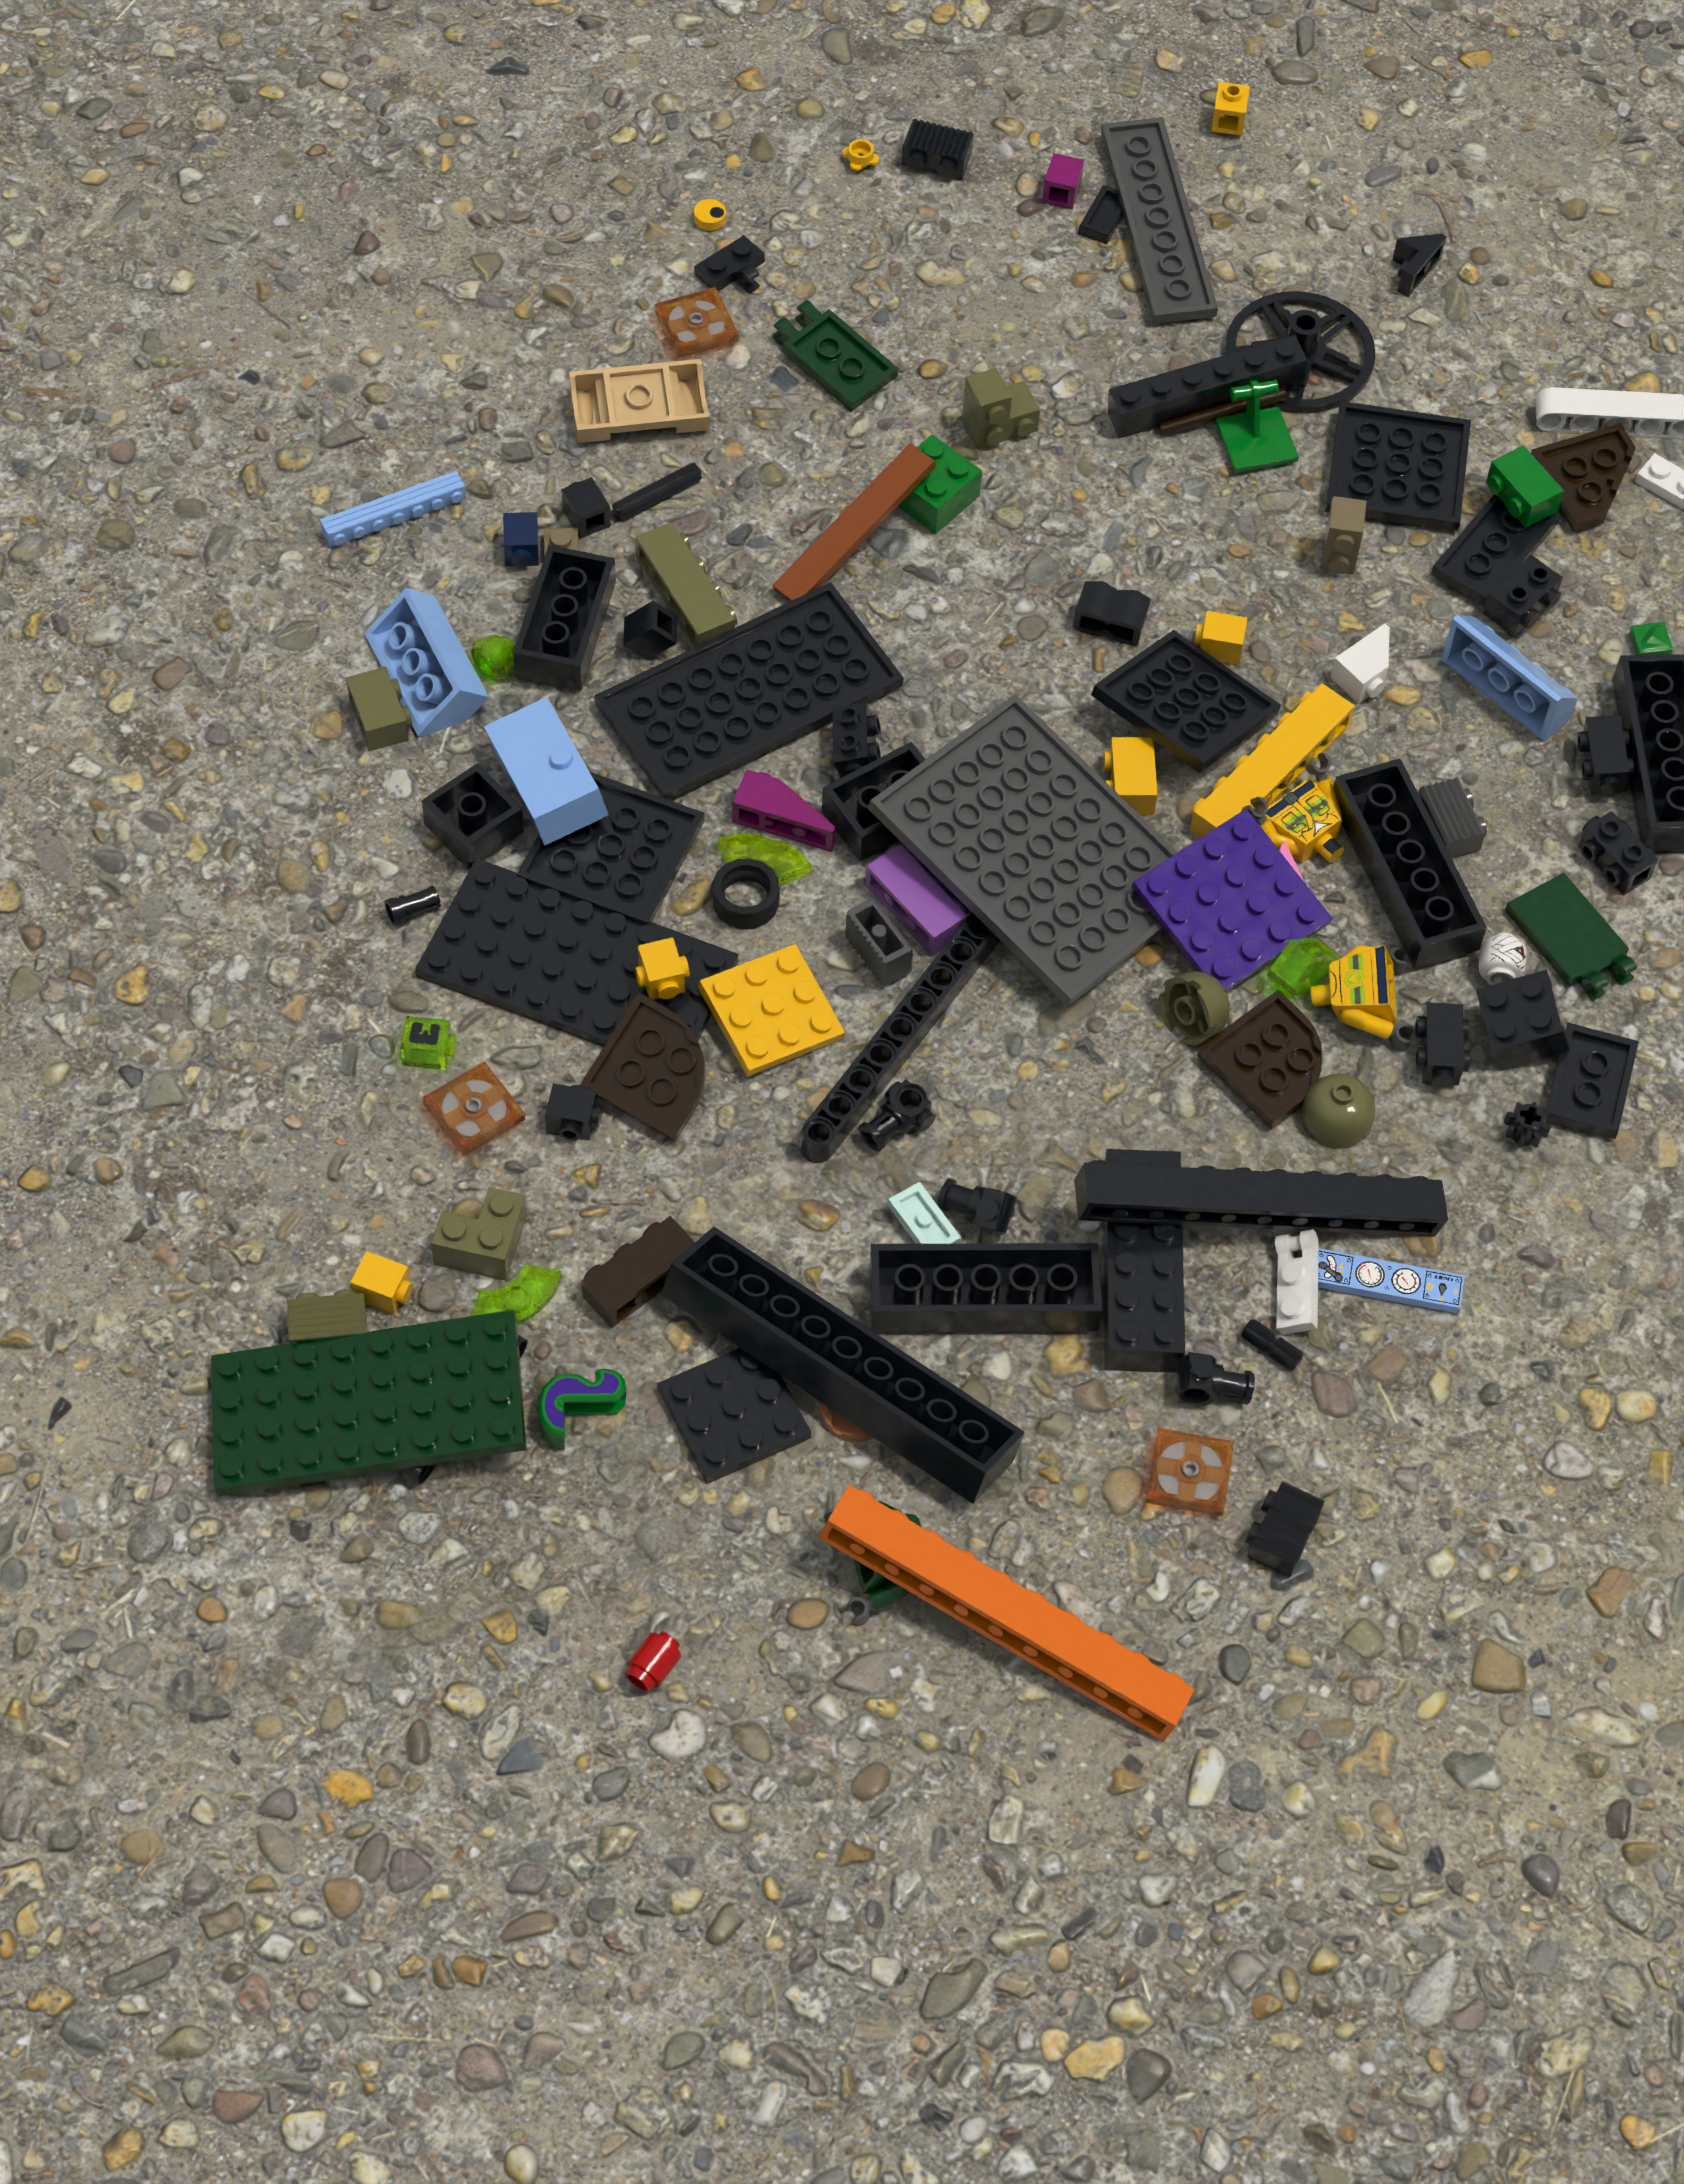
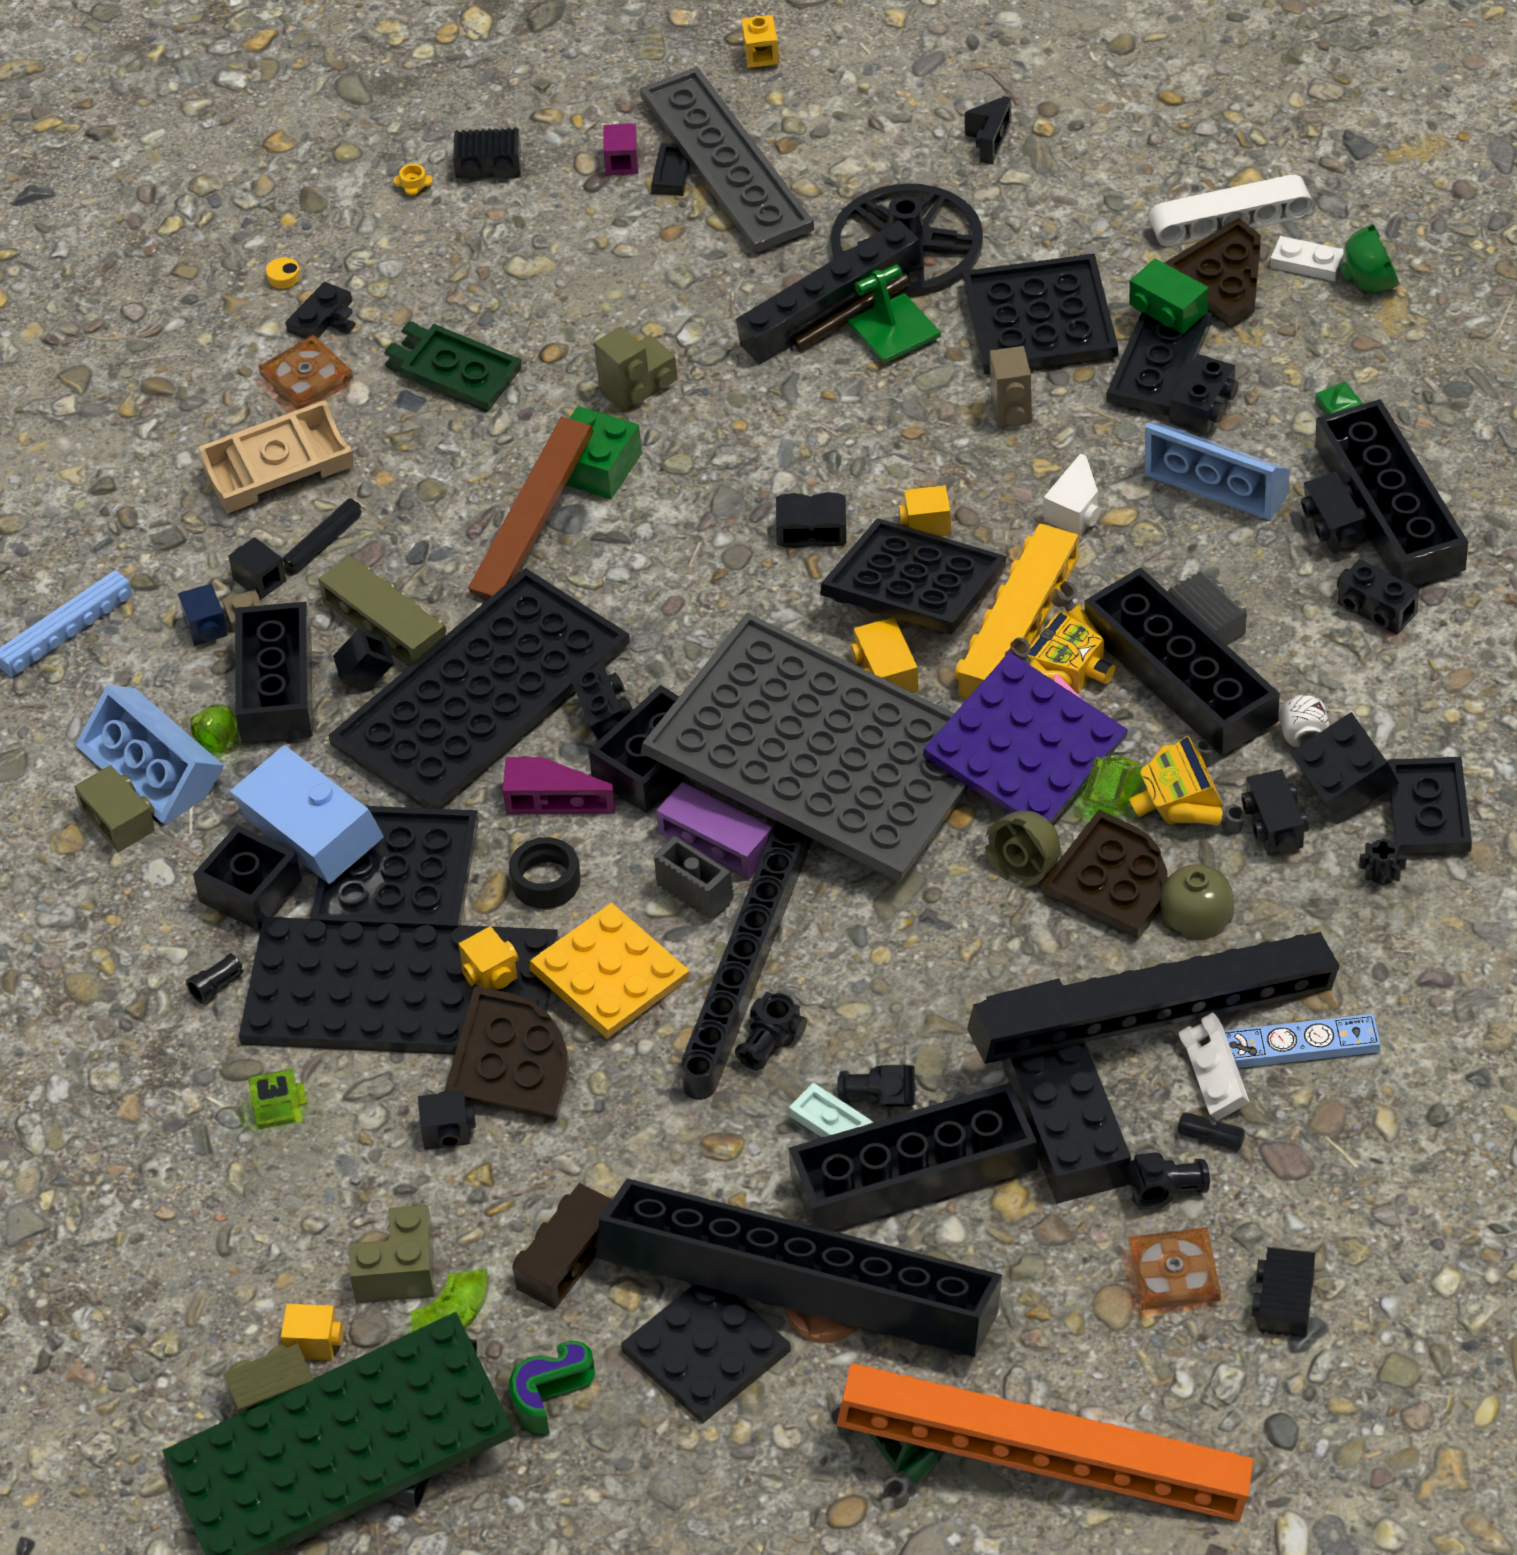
camera: 10 degrees left, 10 degrees down
(474, 1108) = (345, 1146): clear orange piece -> none
(780, 856) = (572, 830): clear neon green tile -> none
(1572, 935) = (1362, 683): dark green tile -> none

